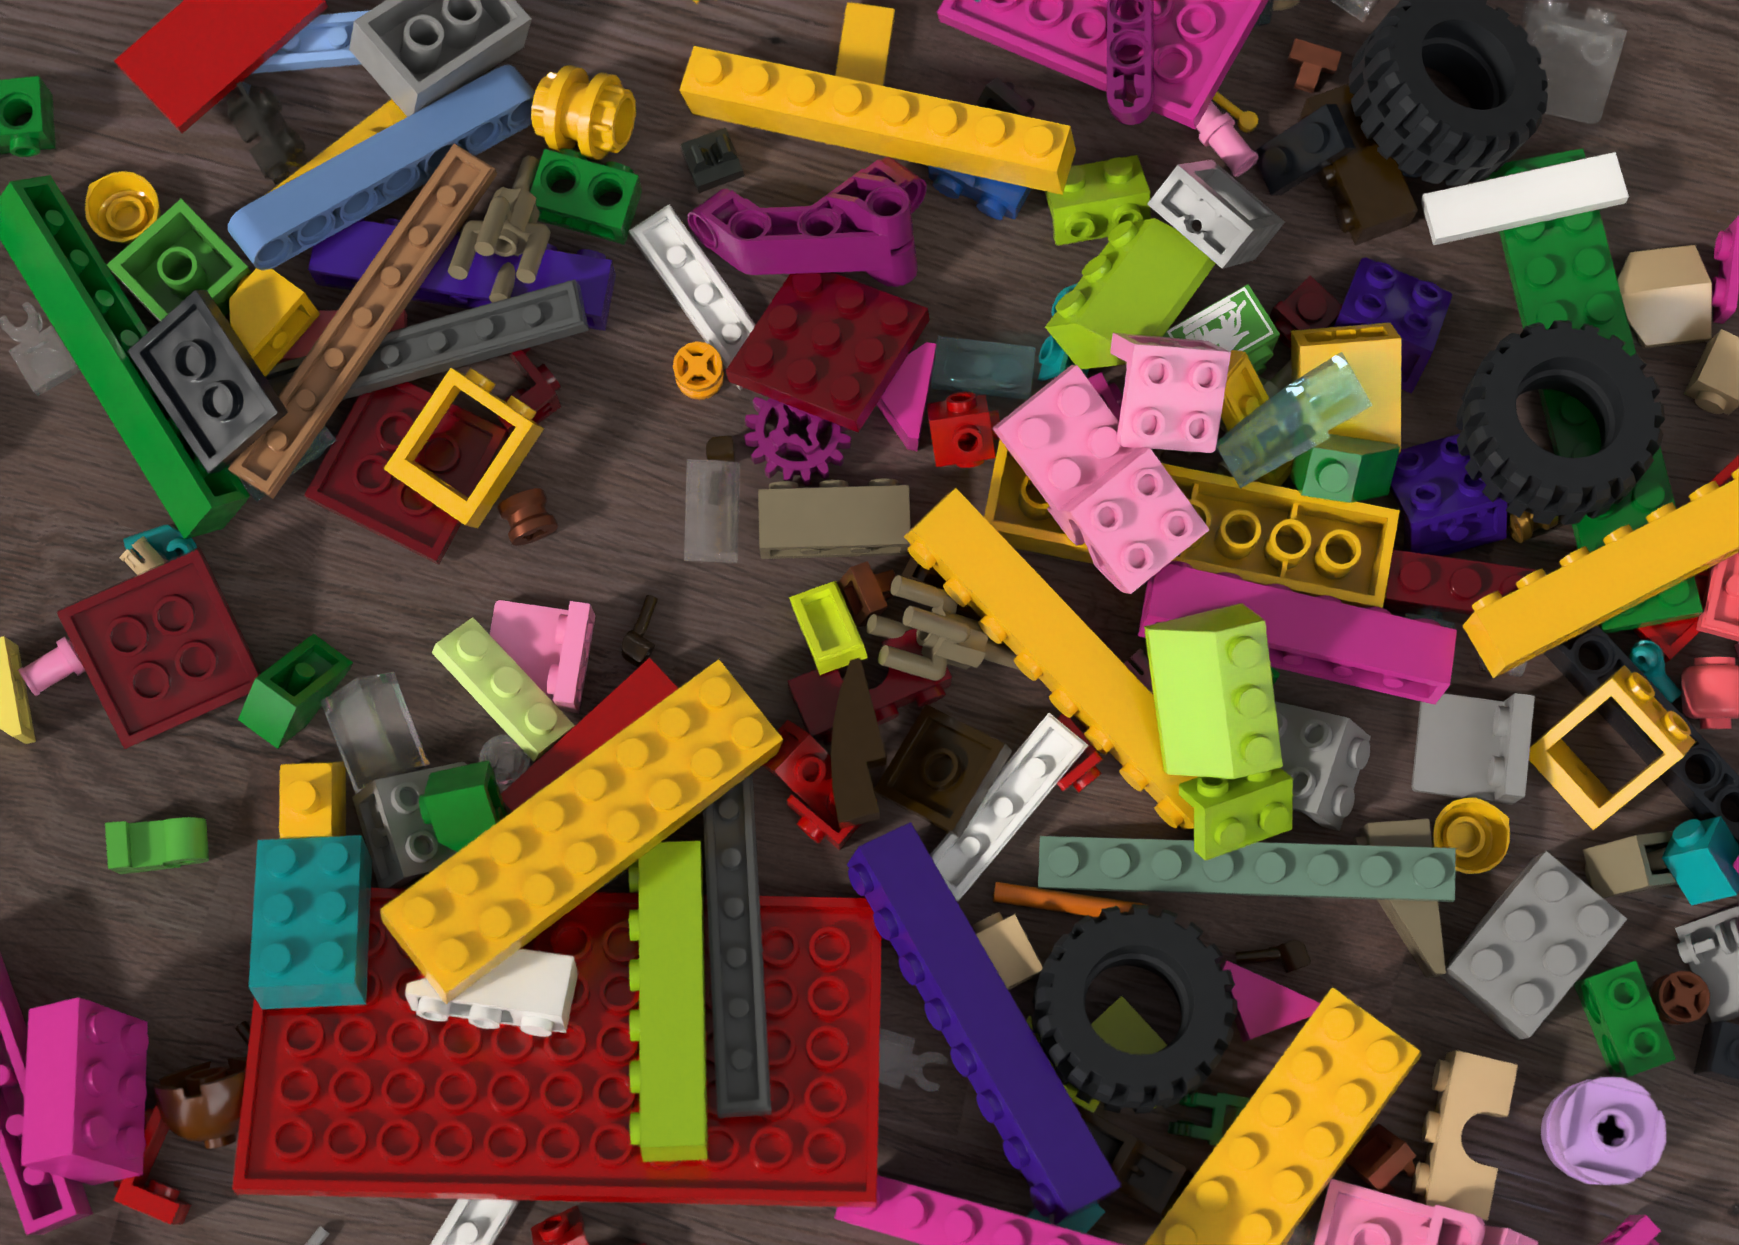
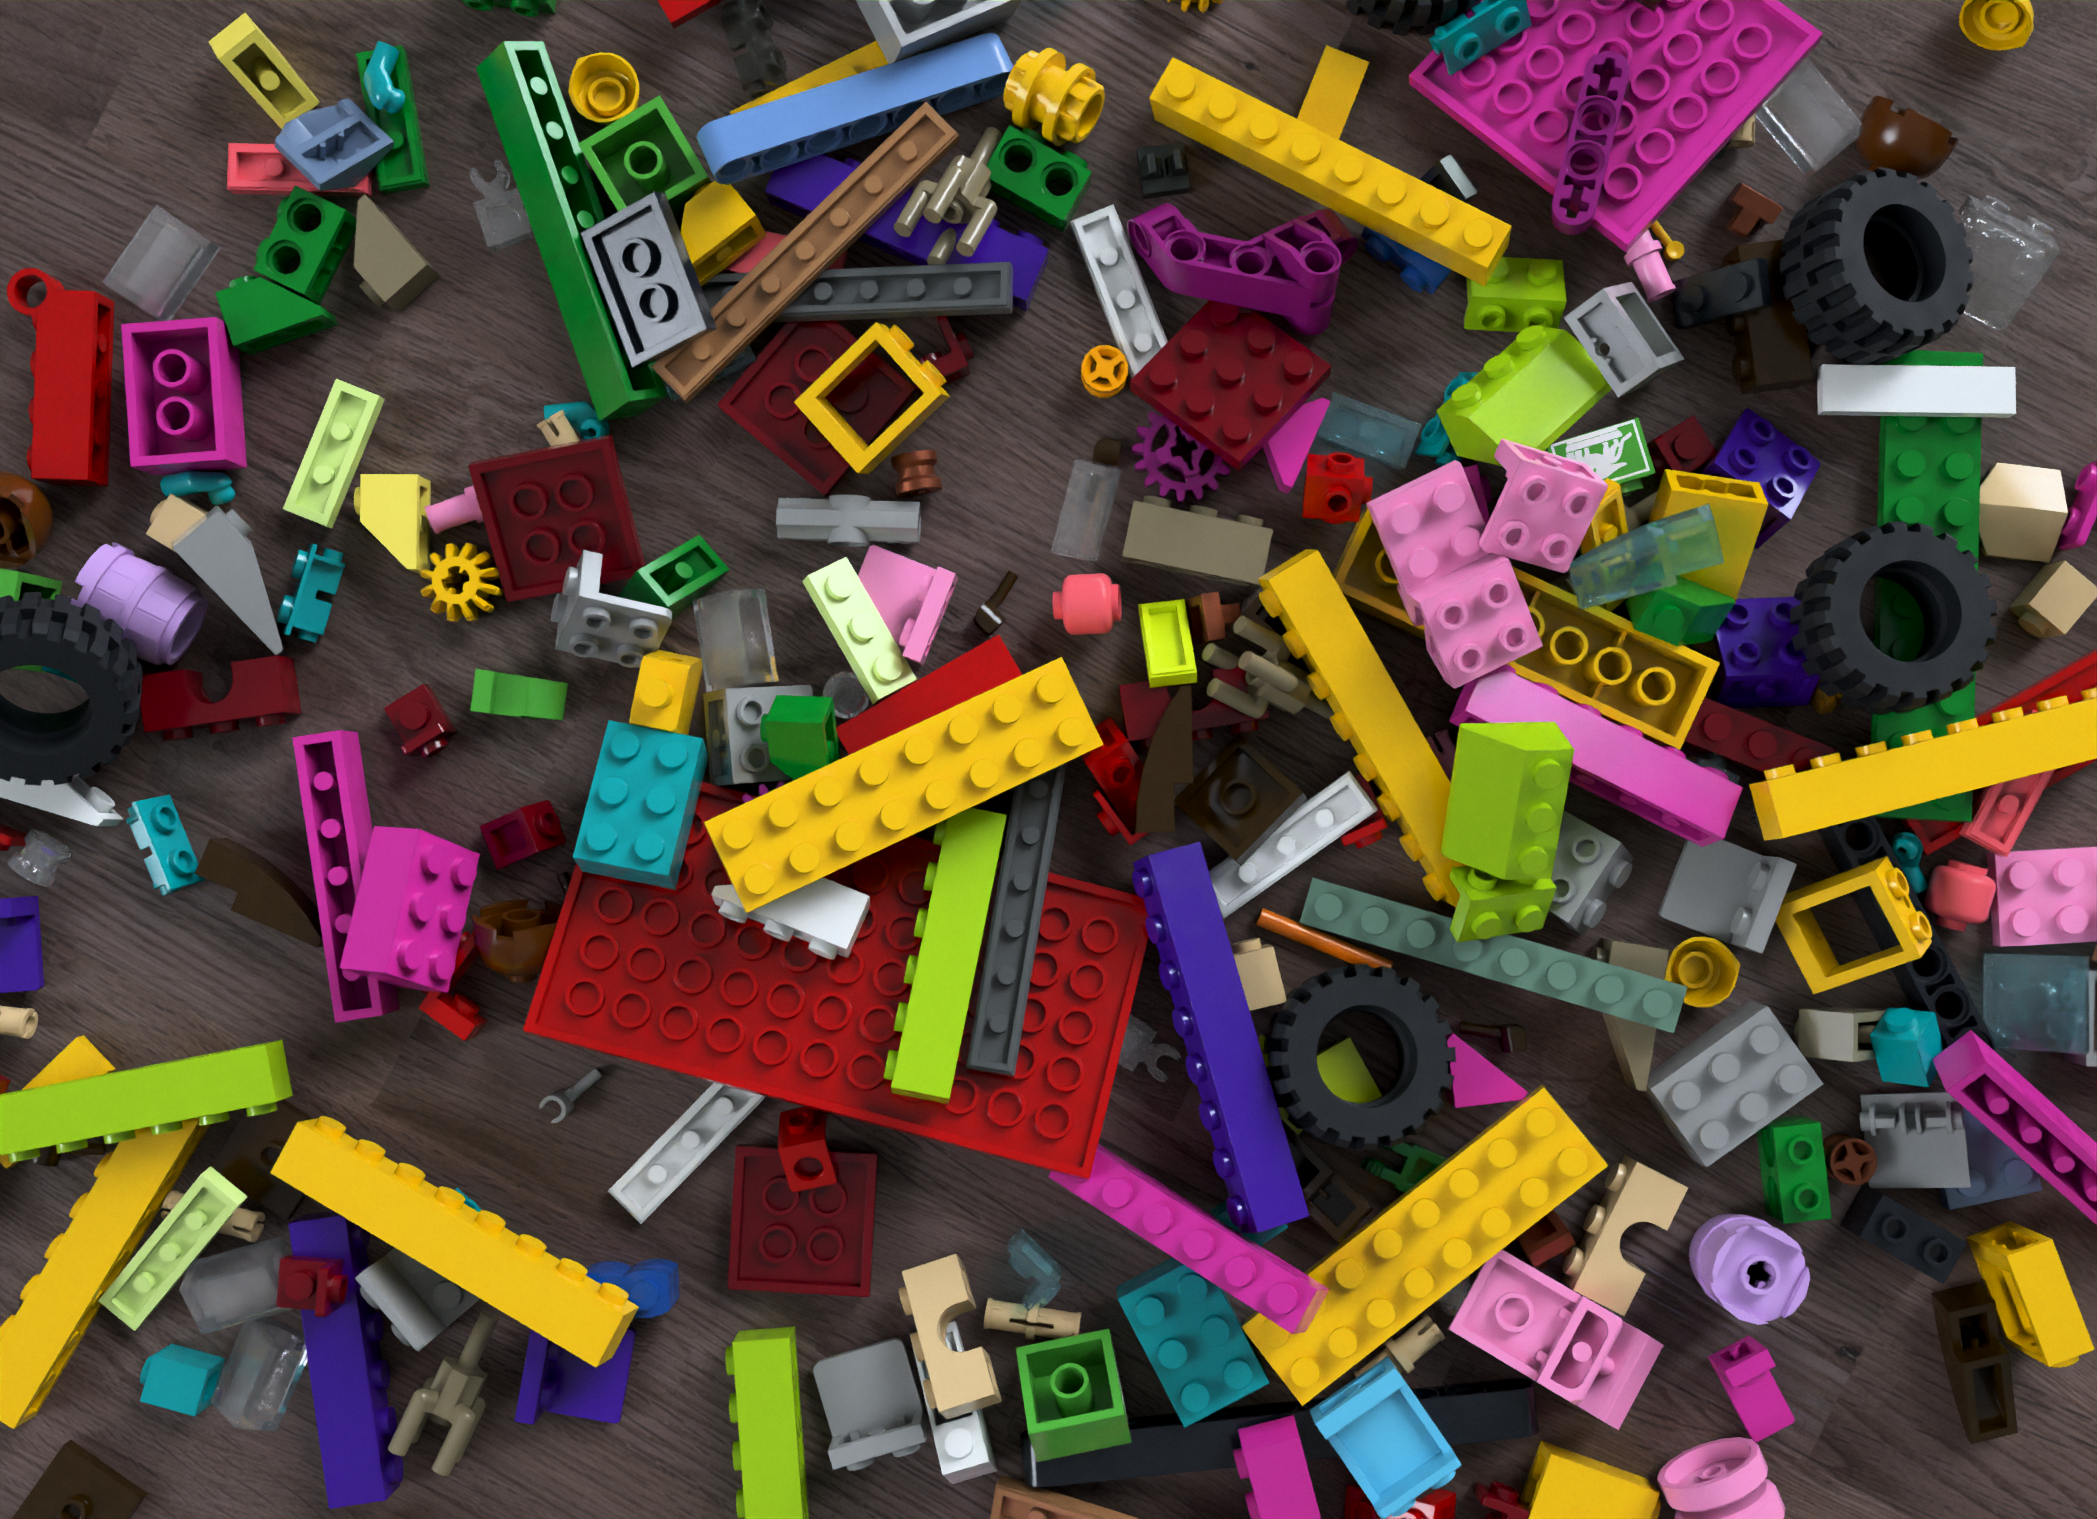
camera: 20 degrees right, 10 degrees up
(55, 737) = (448, 573): none -> yellow gear
(56, 898) = (421, 722): none -> dark red bracket
(189, 989) = (522, 833): none -> dark red bracket
(233, 742) = (602, 623): none -> light grey bracket
(467, 581) = (848, 520): none -> light grey piece
(736, 607) = (1088, 604): none -> coral head

